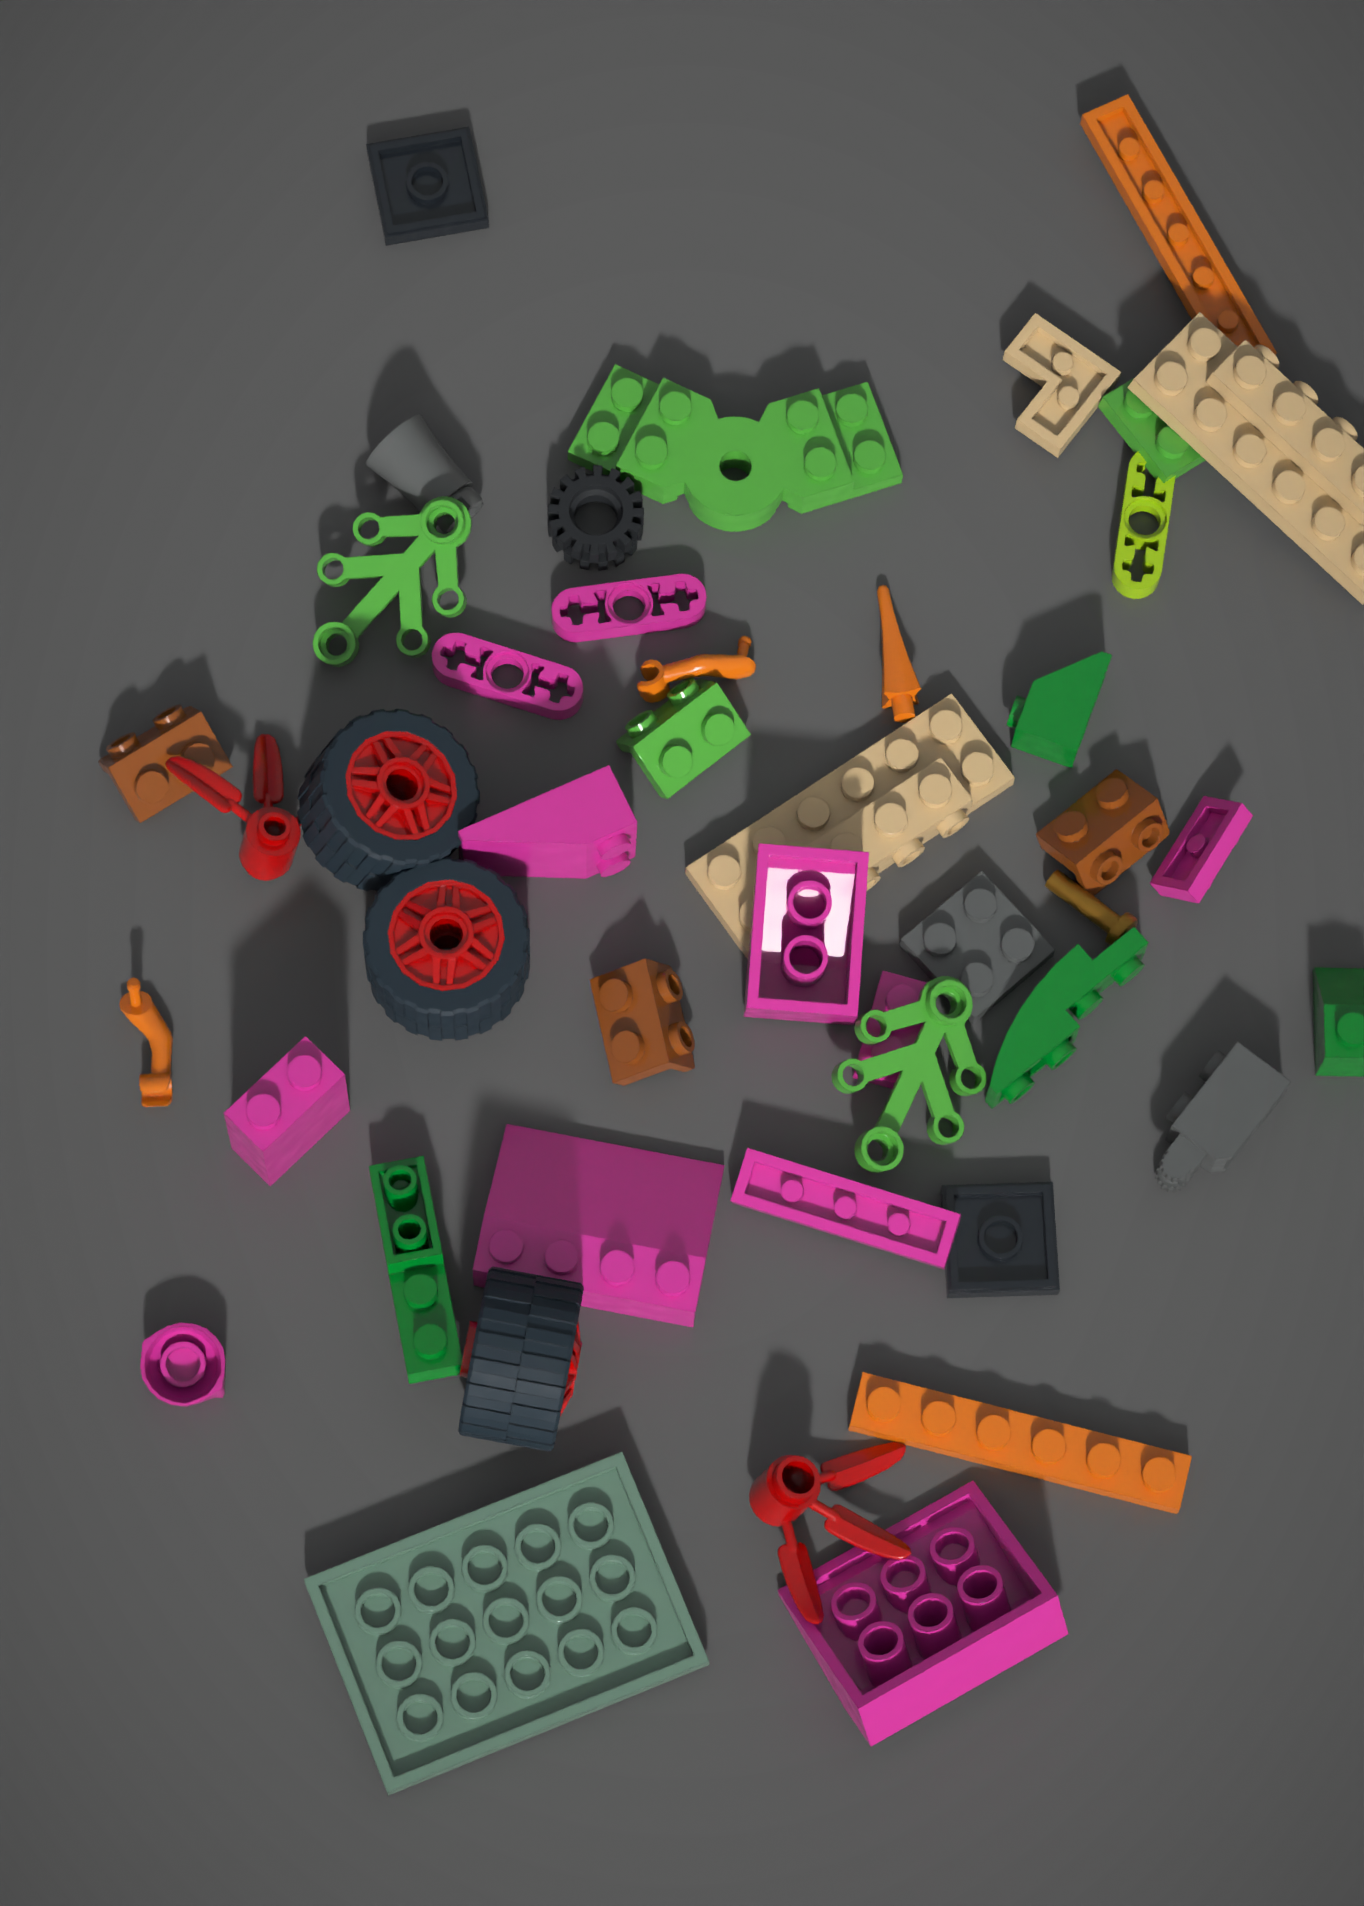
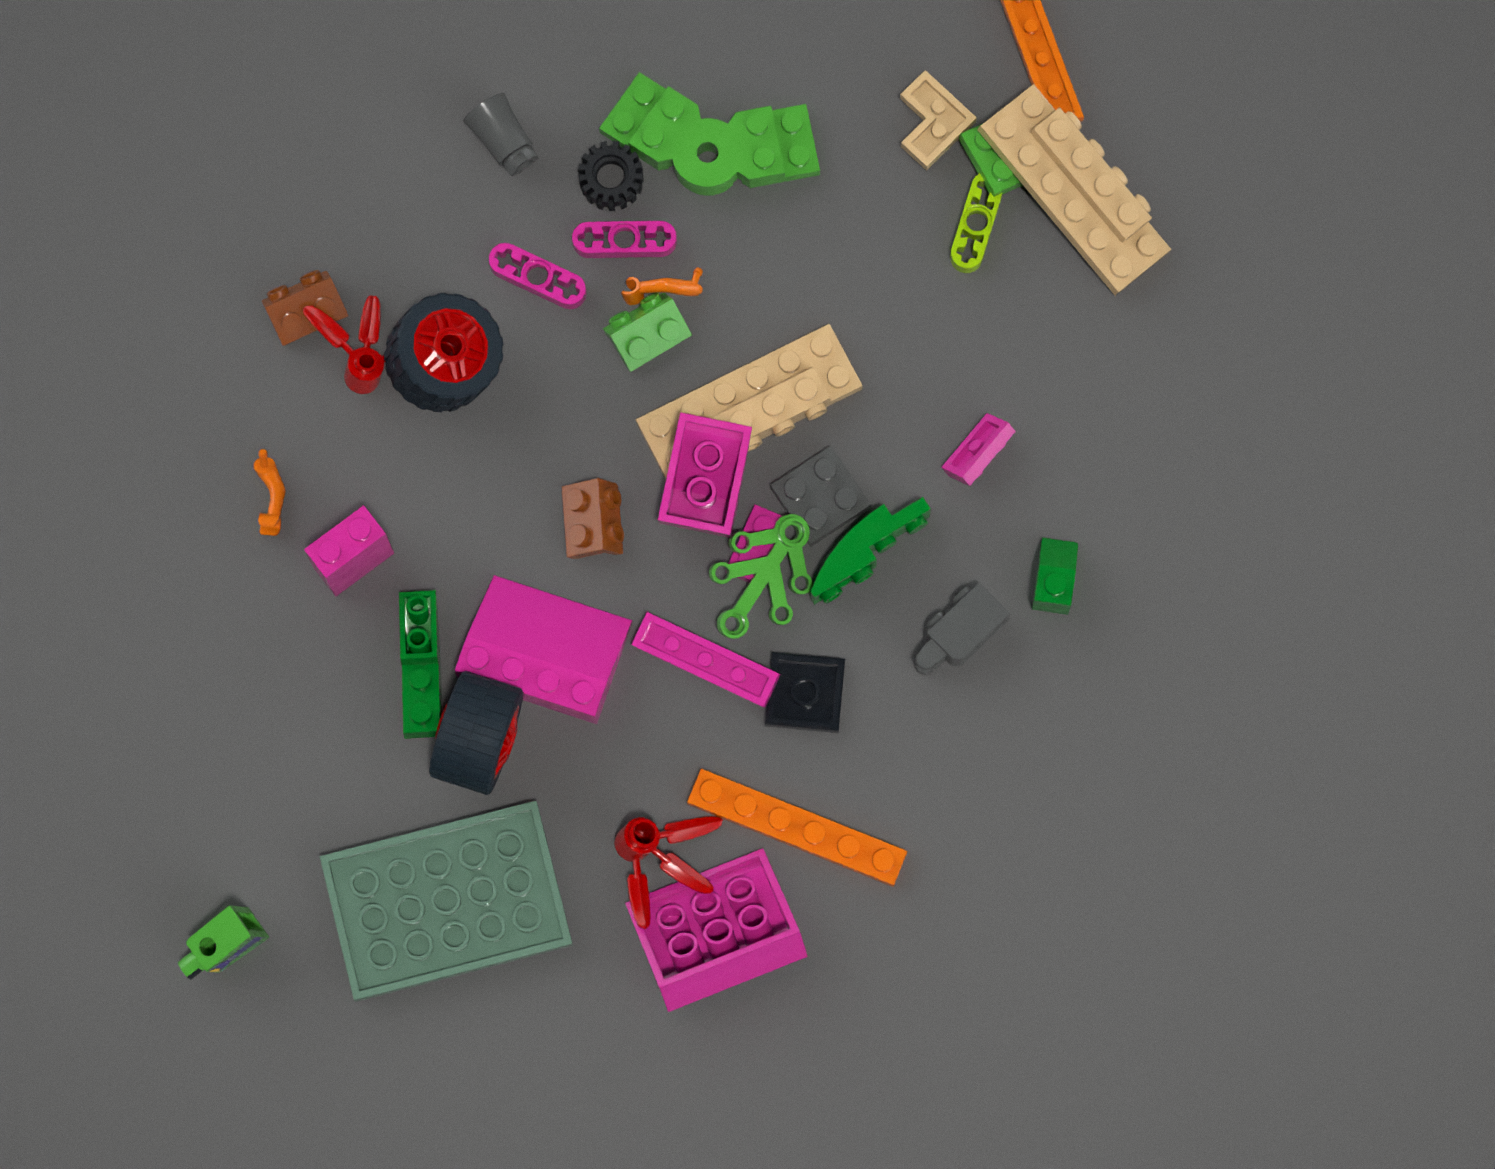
camera: 15 degrees right, 5 degrees up
(183, 1365) = (261, 707): dark pink hat -> none
(193, 1717) = (235, 934): none -> bright green torso
(399, 575) = (473, 201): bright green plant -> none
(457, 988) = (476, 482): wheel -> none
(558, 834) = (554, 387): dark pink slope -> none
(898, 675) = (795, 310): orange piece -> none
(1058, 710) = (899, 343): green slope -> none
(1091, 907) = (893, 472): pearl gold piece -> none
(1105, 831) = (917, 429): dark orange bracket -> none

